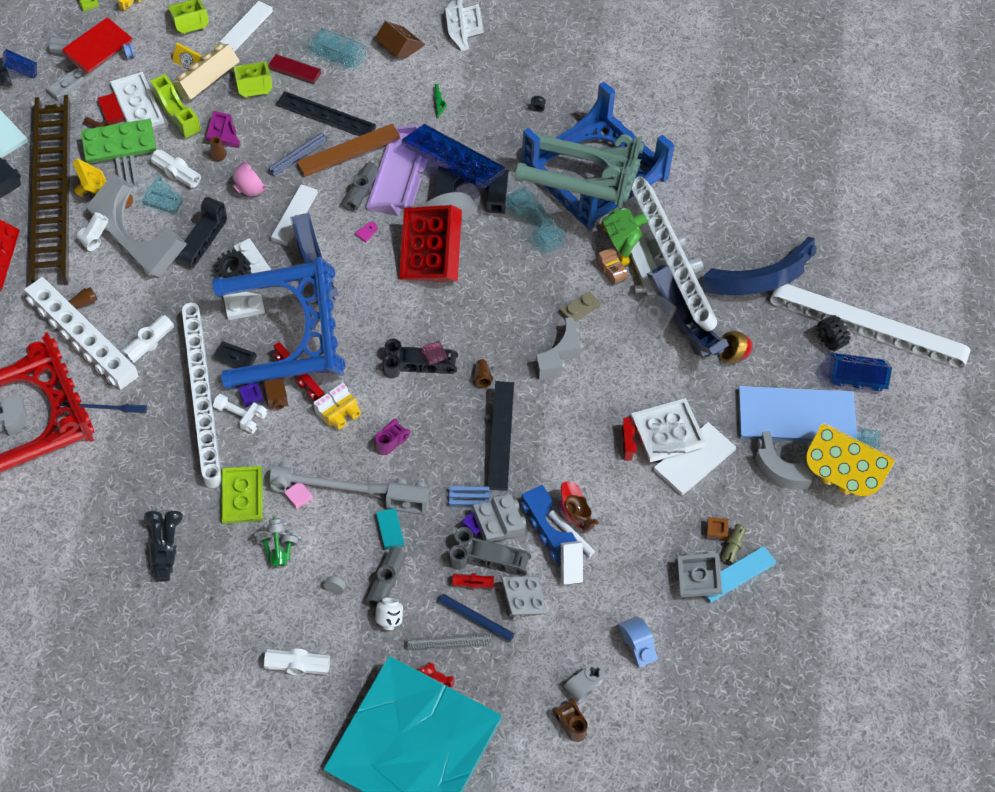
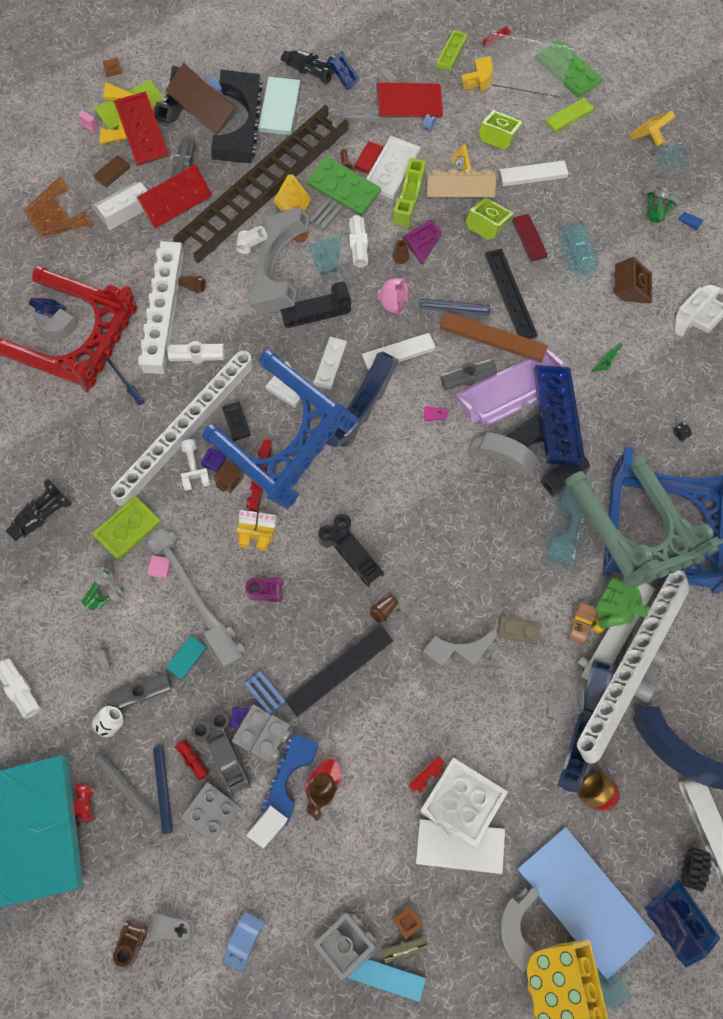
camera: 50 degrees right, 10 degrees up
(229, 259) = (305, 345): black tyre -> none
(431, 243) = (460, 470): red slope -> none
(434, 352) = (362, 557): clear pink tile -> none
(566, 528) = (300, 802): white bar -> none

